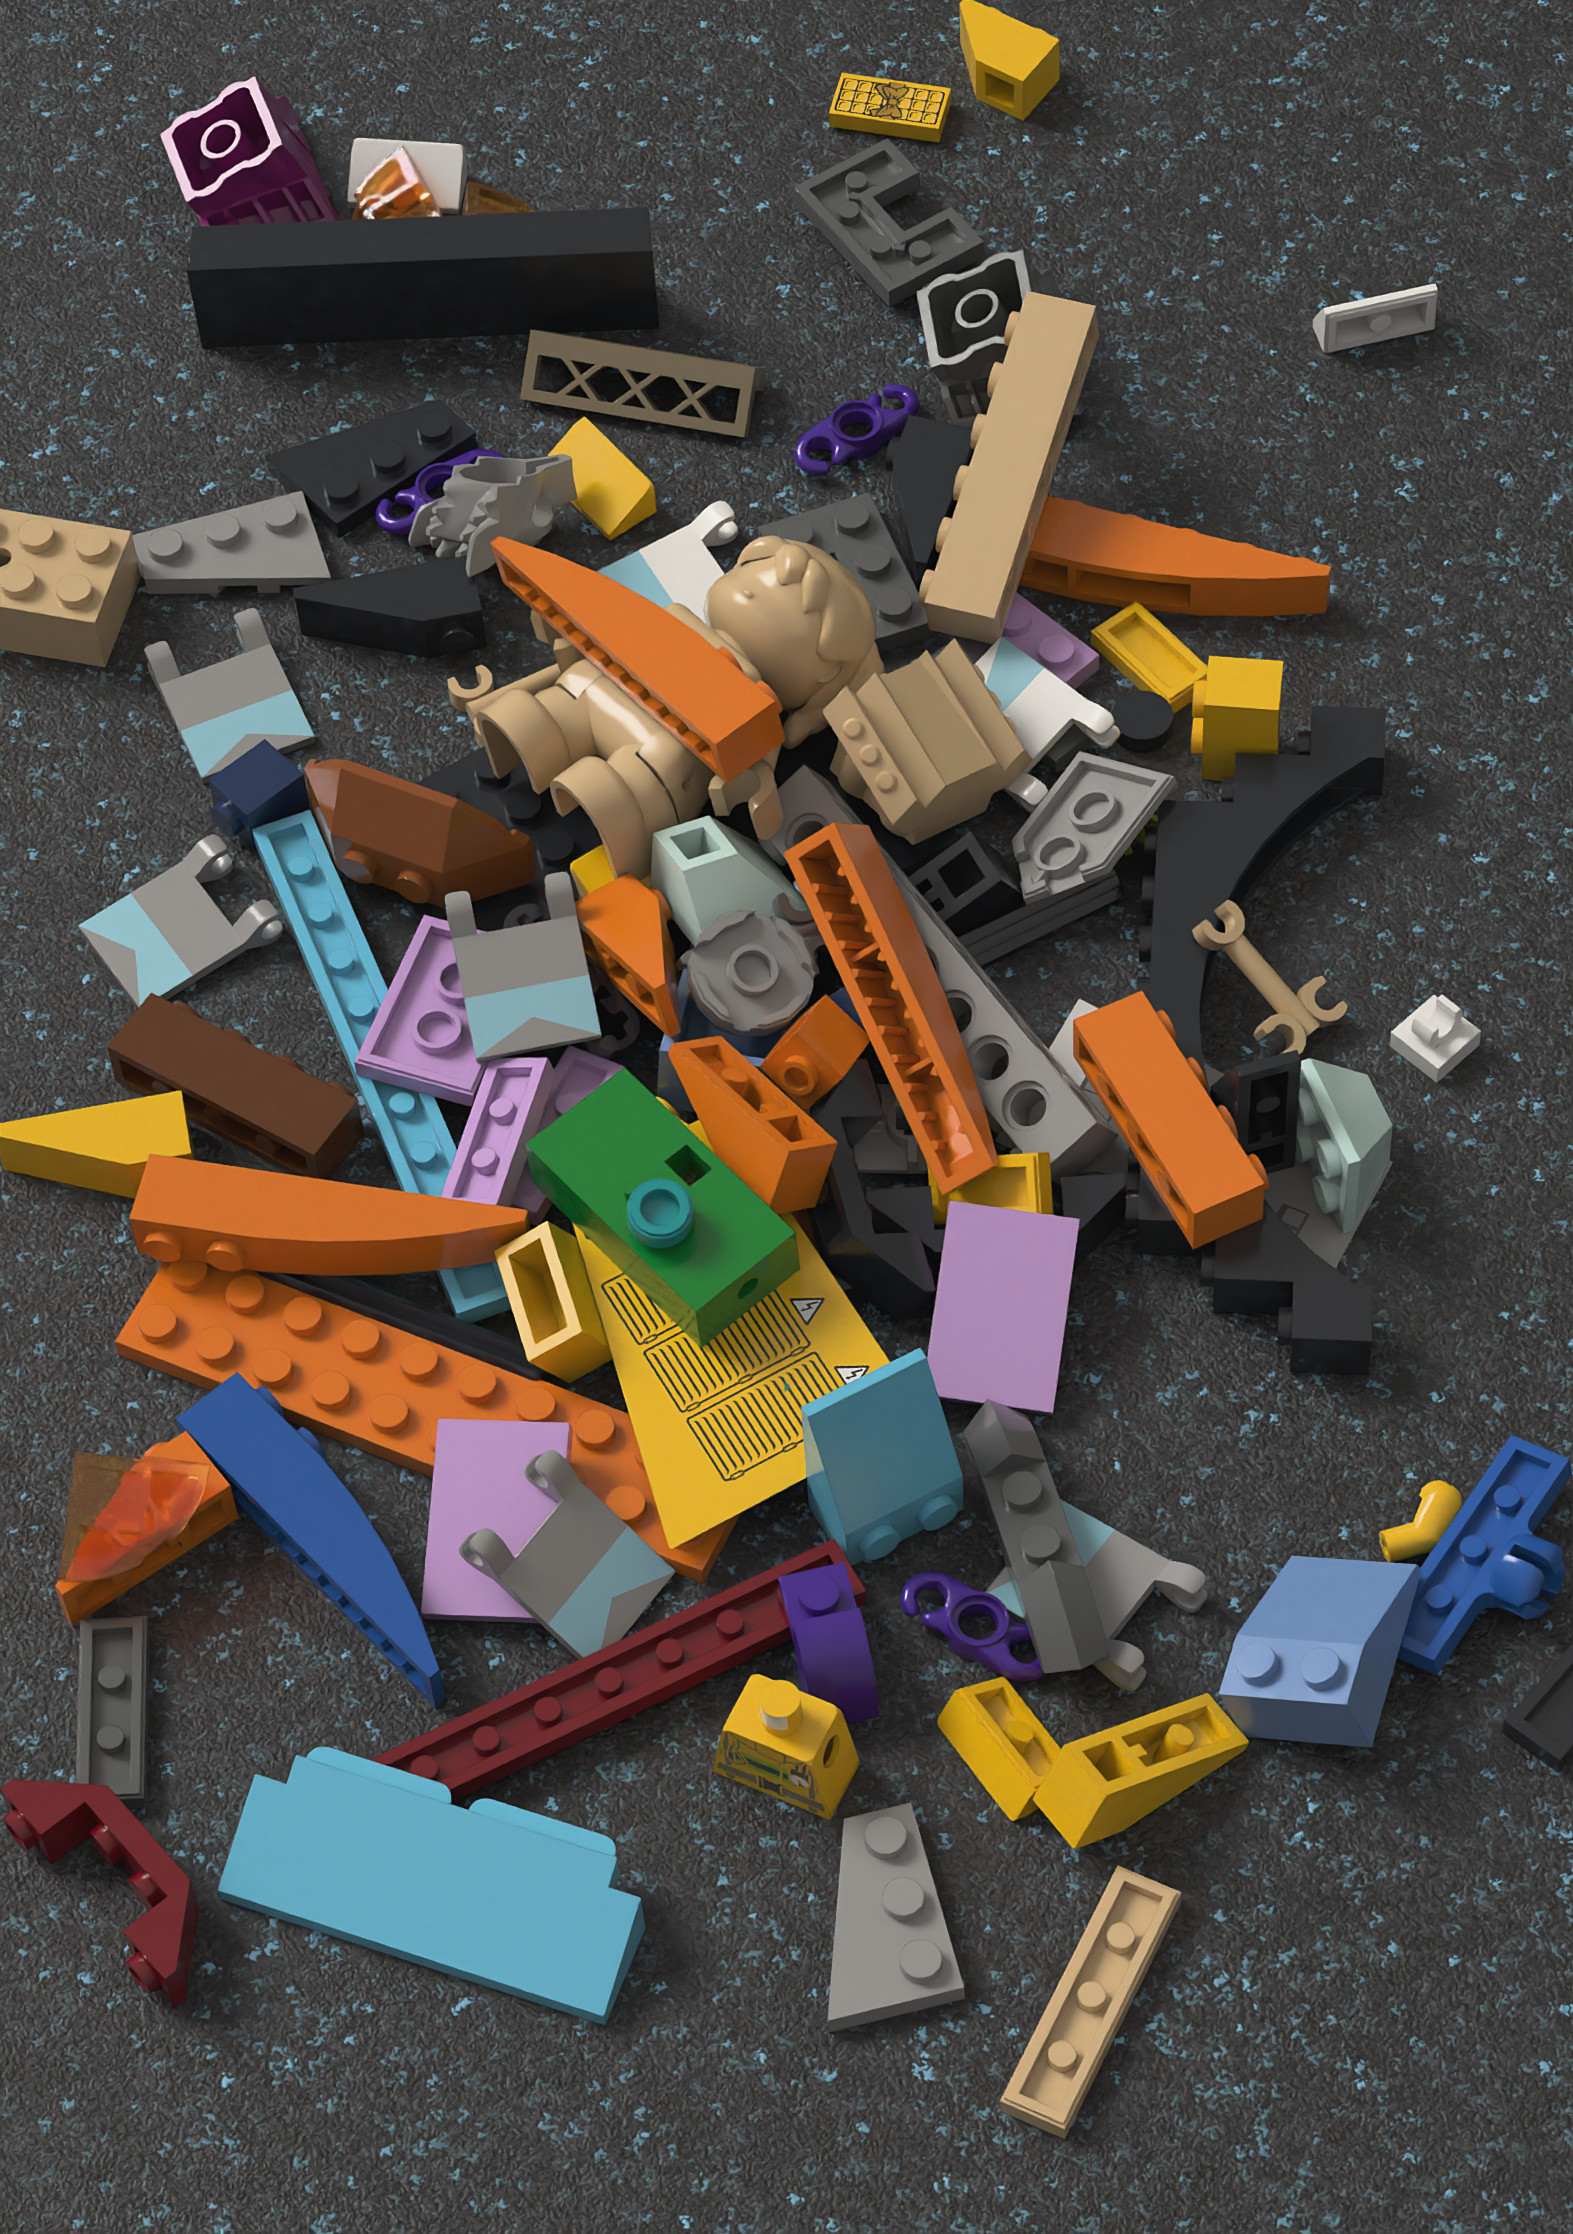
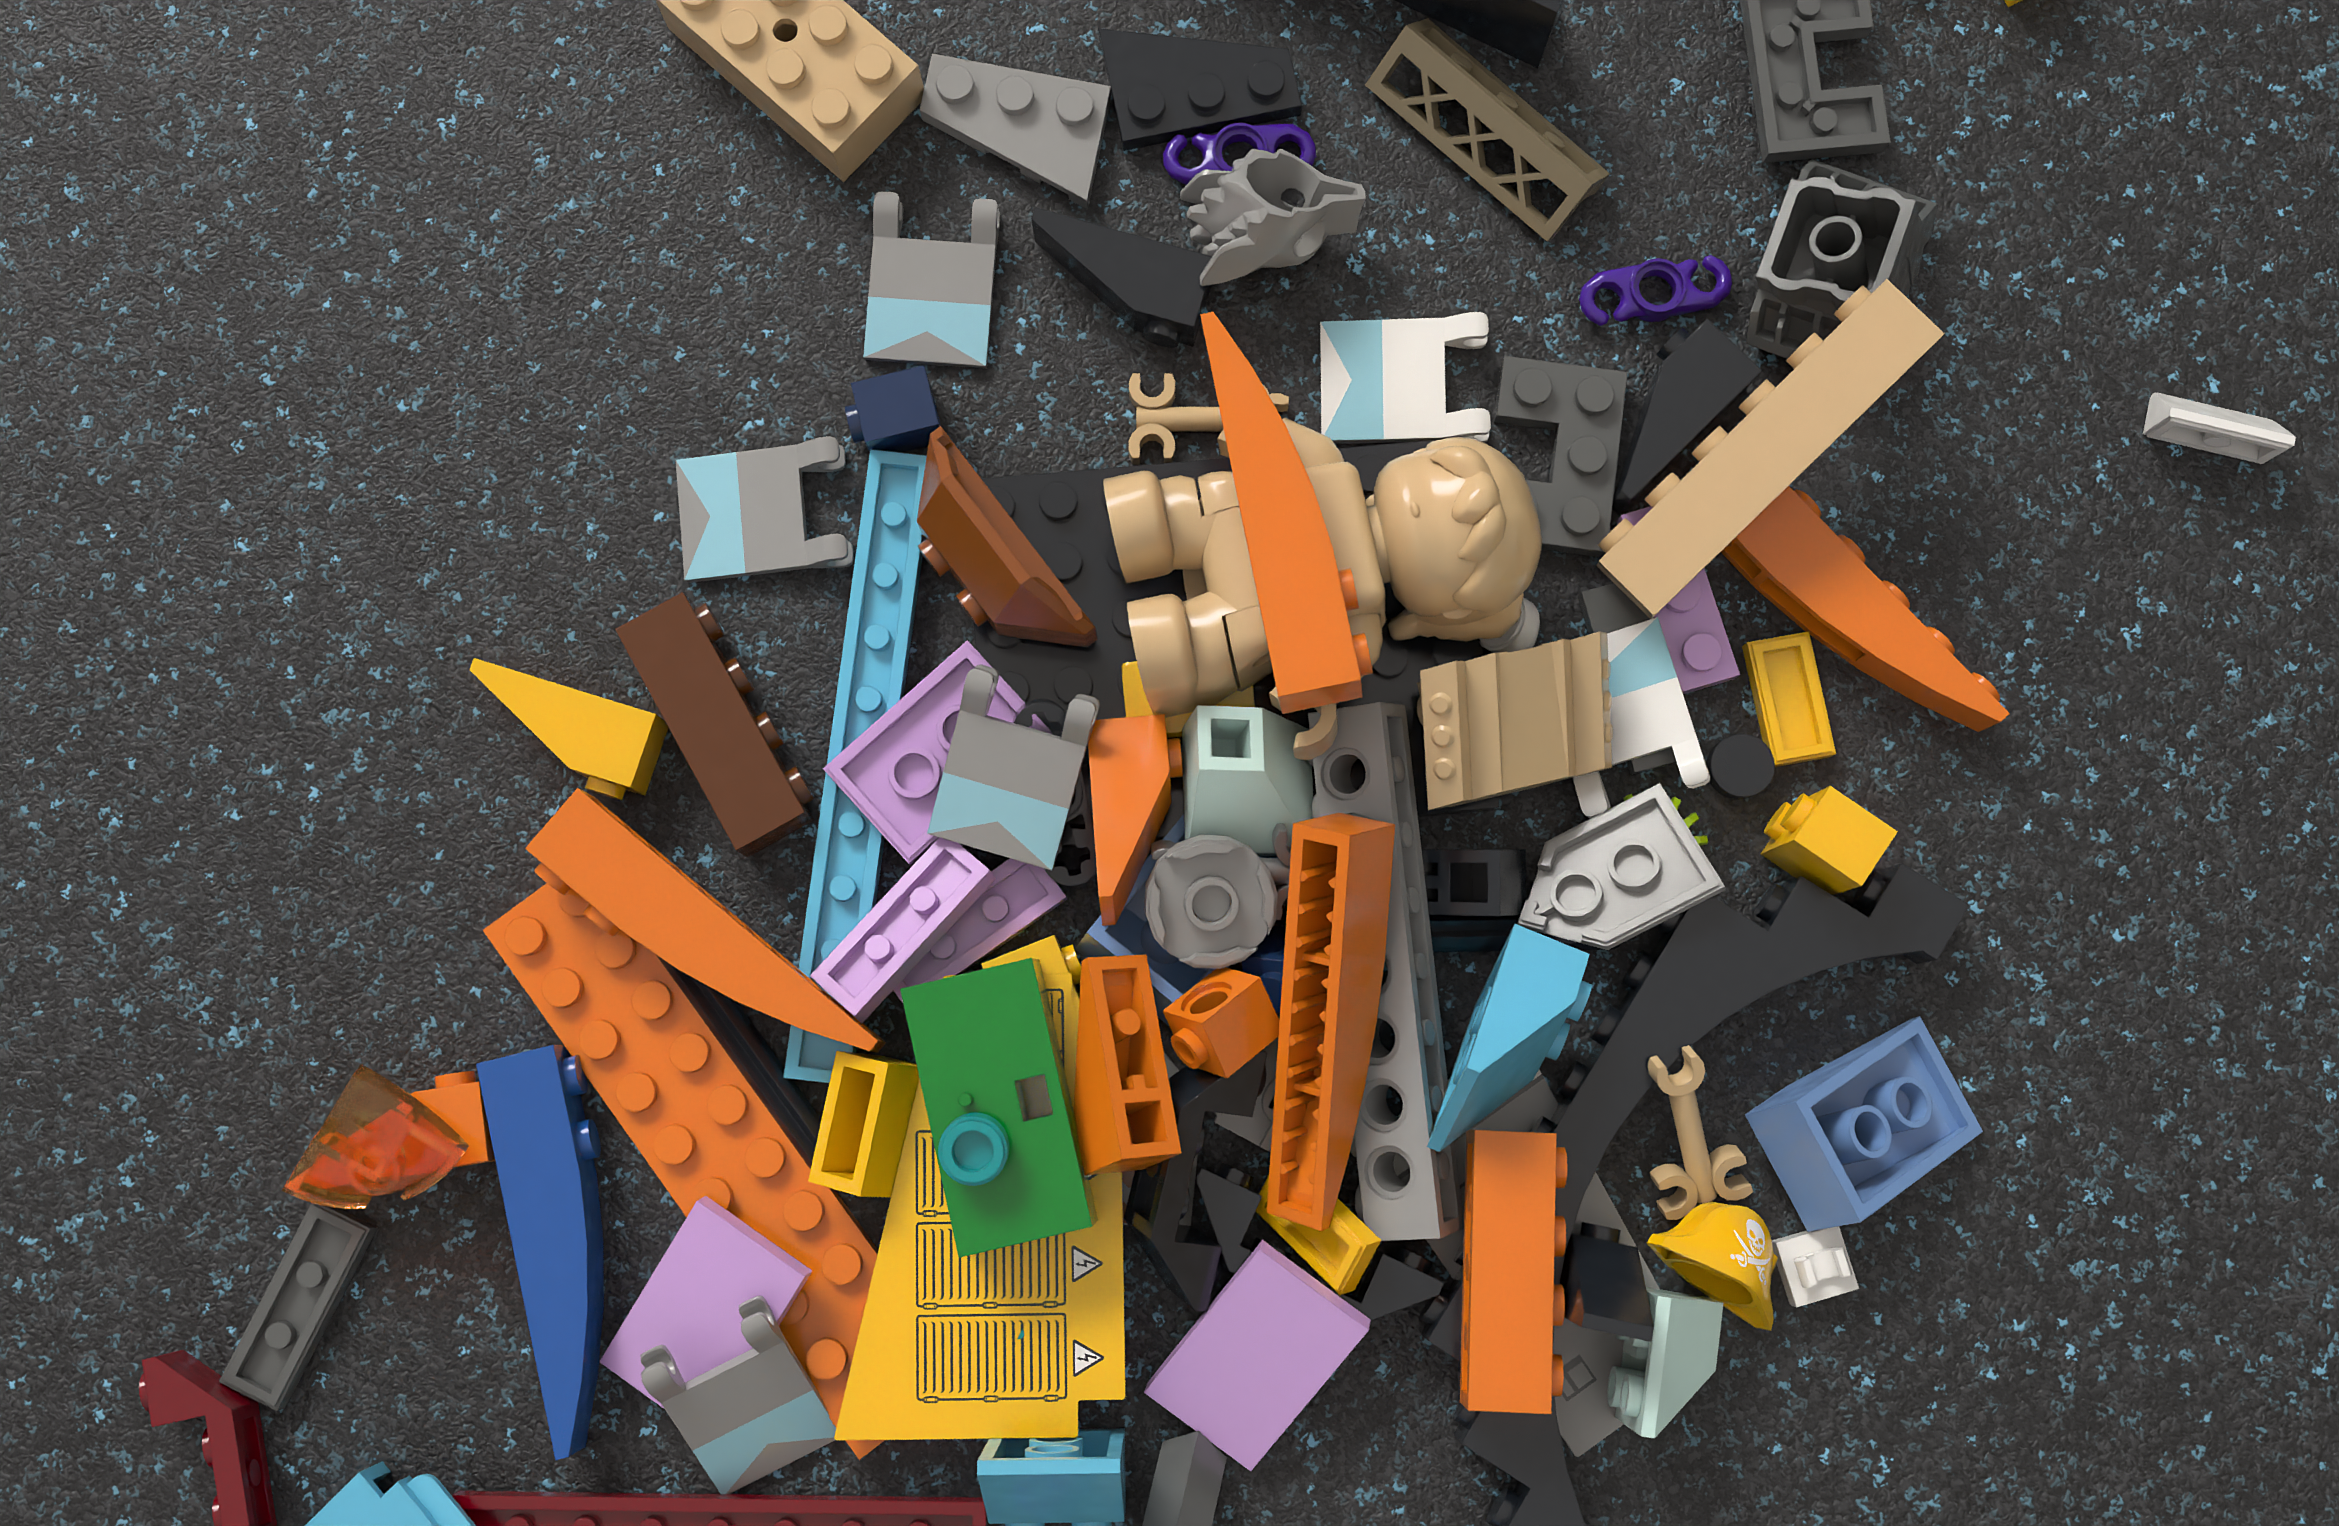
camera: 25 degrees right, 25 degrees up
(607, 484) = (1389, 224): yellow slope -> none
(1065, 951) = (1512, 1028): none -> medium azure slope
(1362, 1044) = (1725, 1256): none -> yellow hat
(1404, 914) = (1864, 1127): none -> medium blue slope

